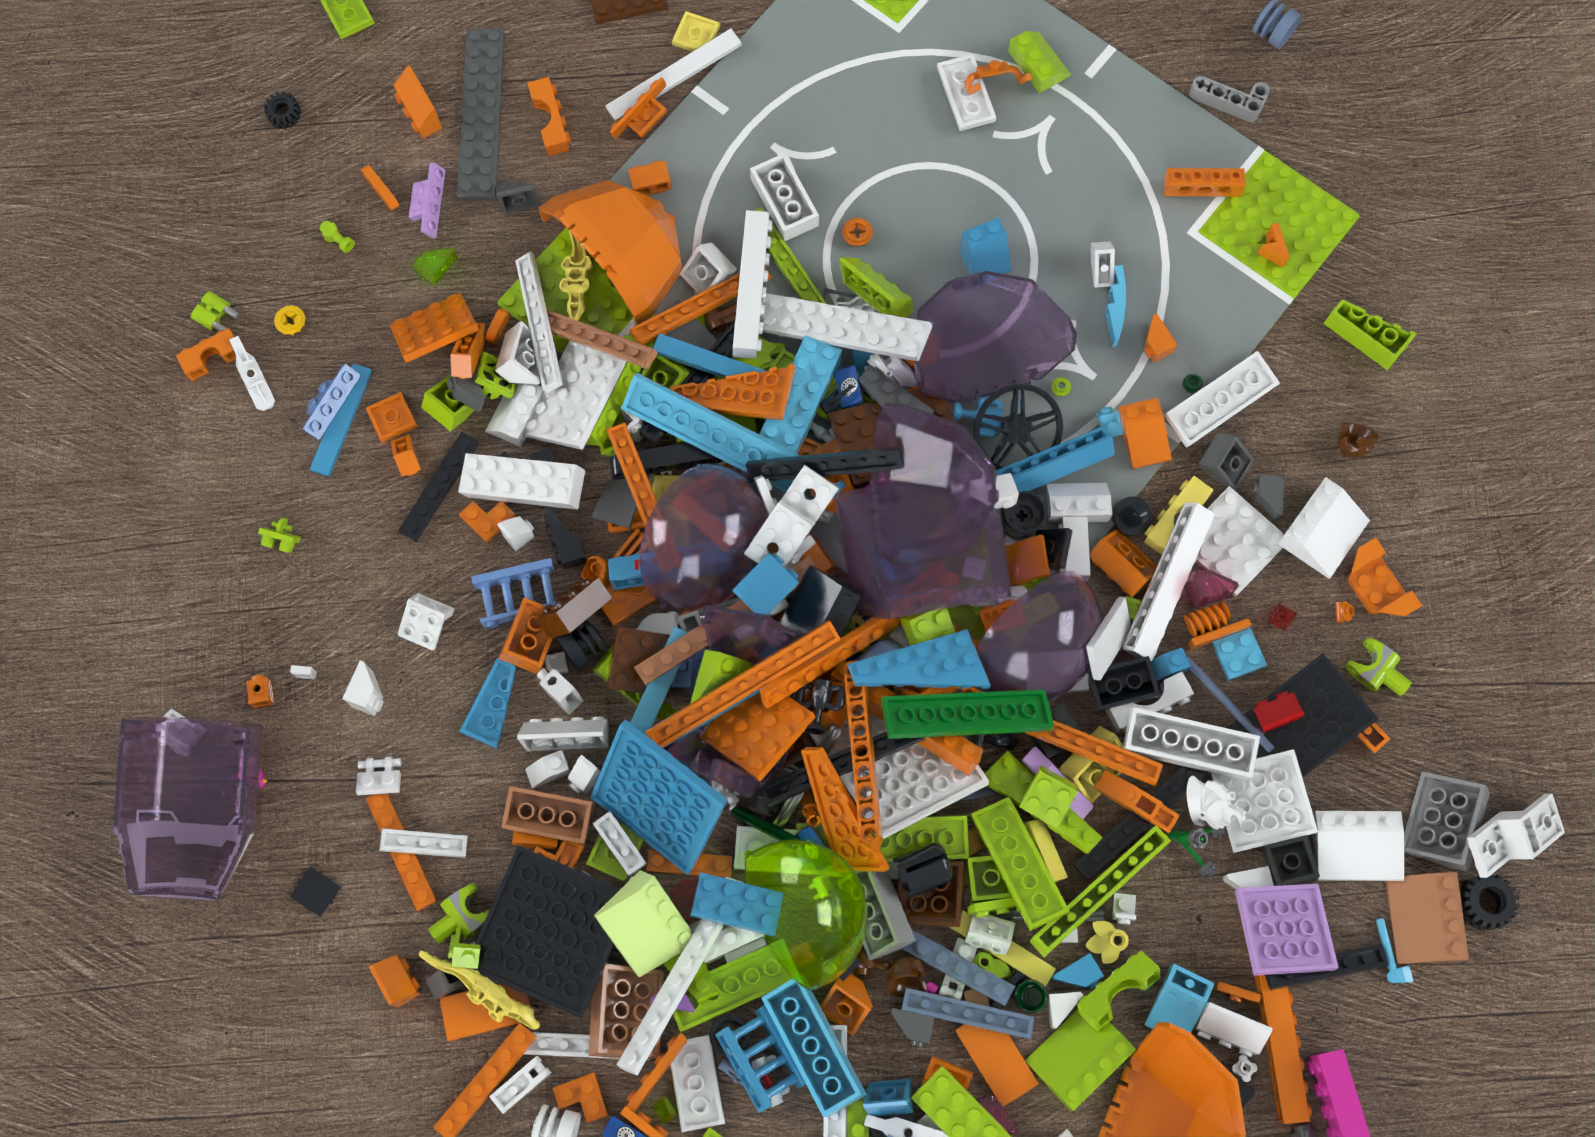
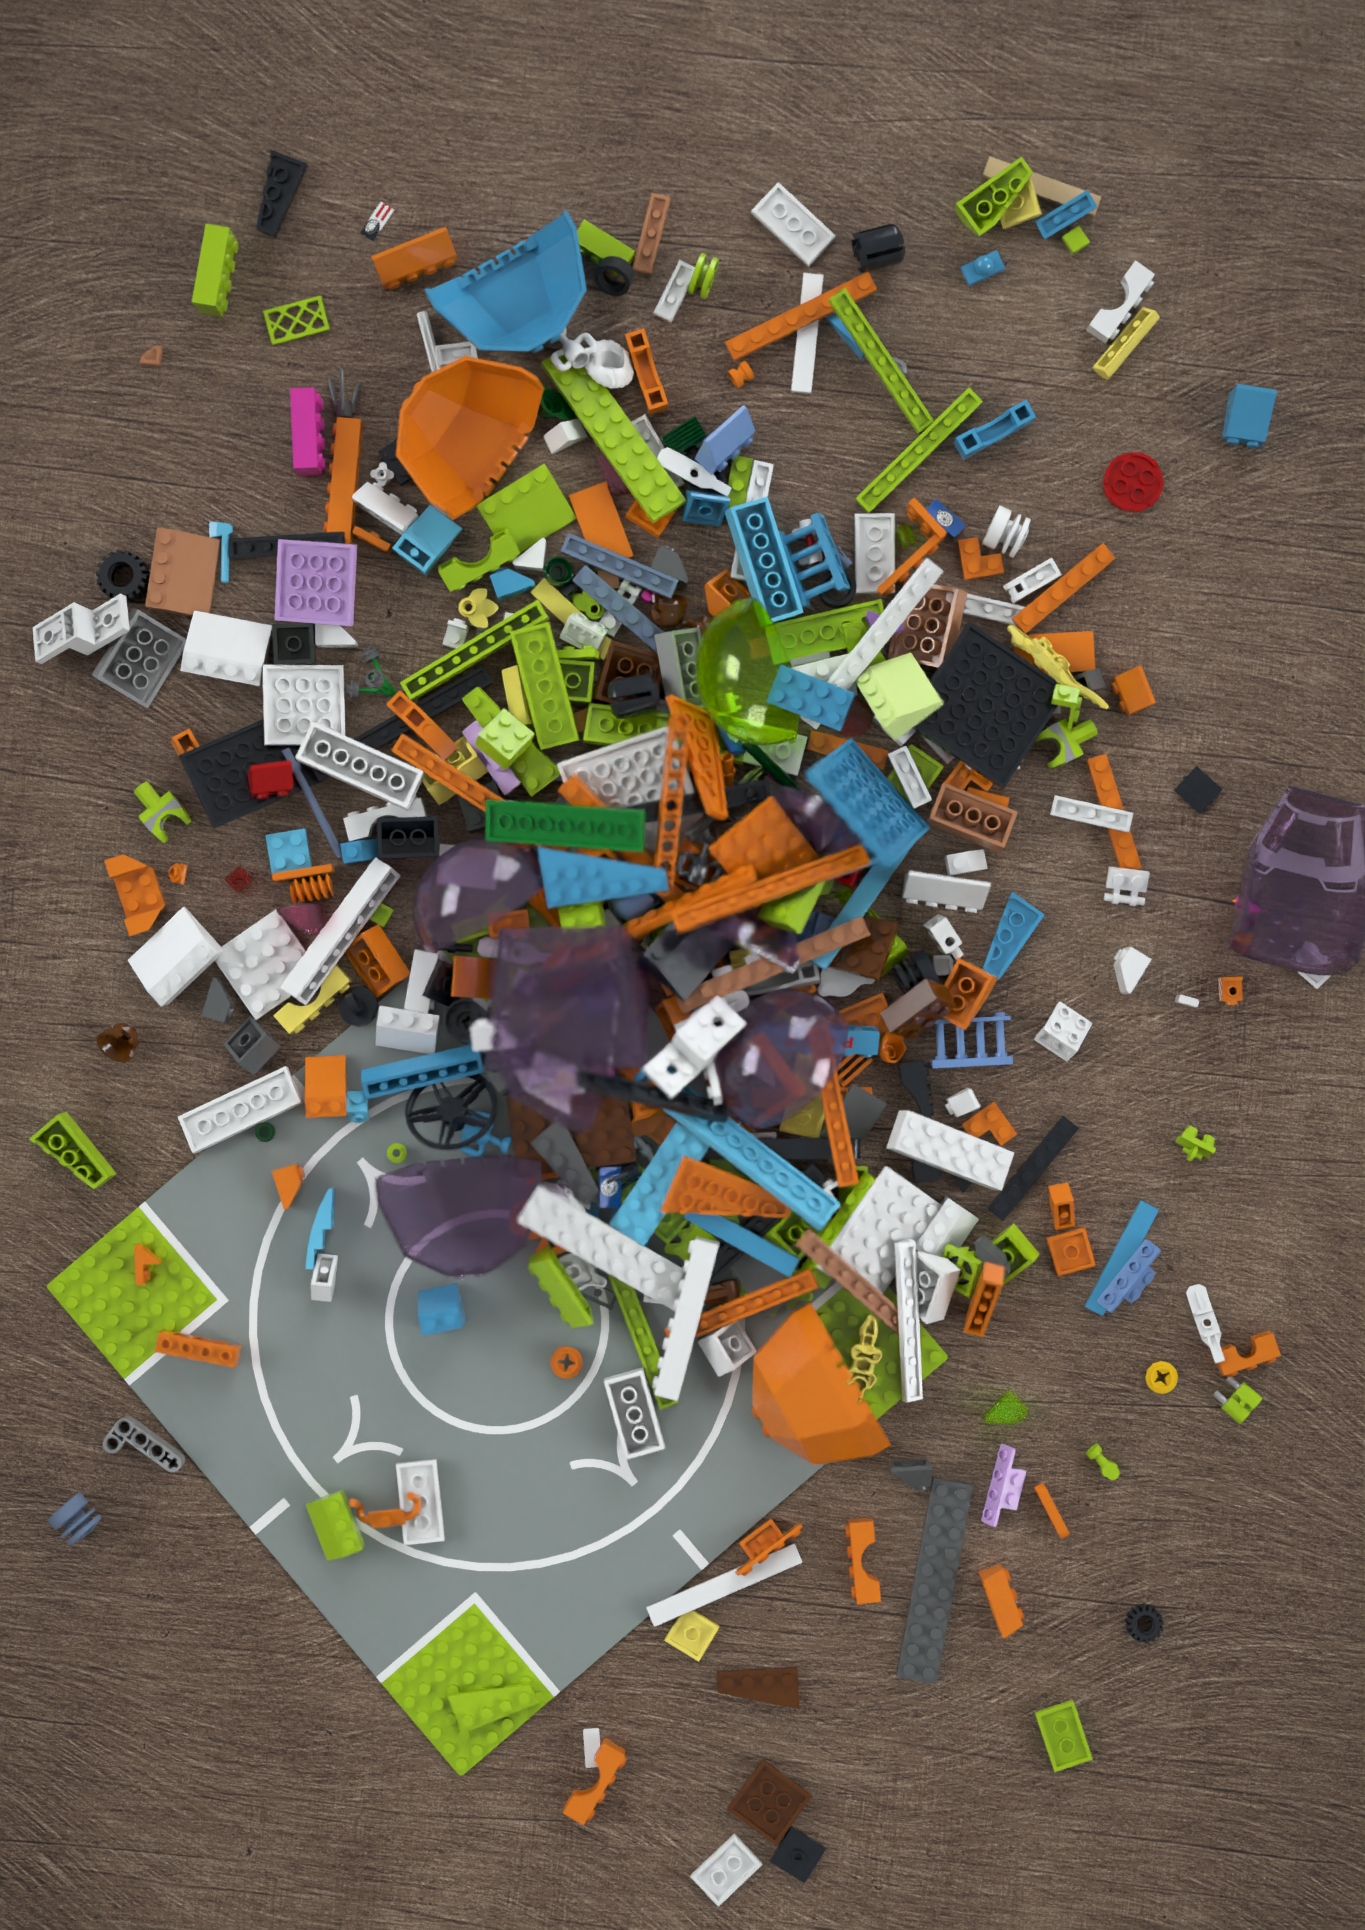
camera: 170 degrees left, 15 degrees up
(433, 327) = (1016, 1333): orange plate -> none
(497, 326) = (950, 1329): orange beam -> none
(583, 775) = (933, 848): white slope -> none
(650, 178) = (769, 1463): orange brick -> none
(766, 584) = (731, 982): dark azure slope -> none
(1108, 638) = (412, 882): white tile -> none
(1212, 804) = (354, 708): white helmet -> none

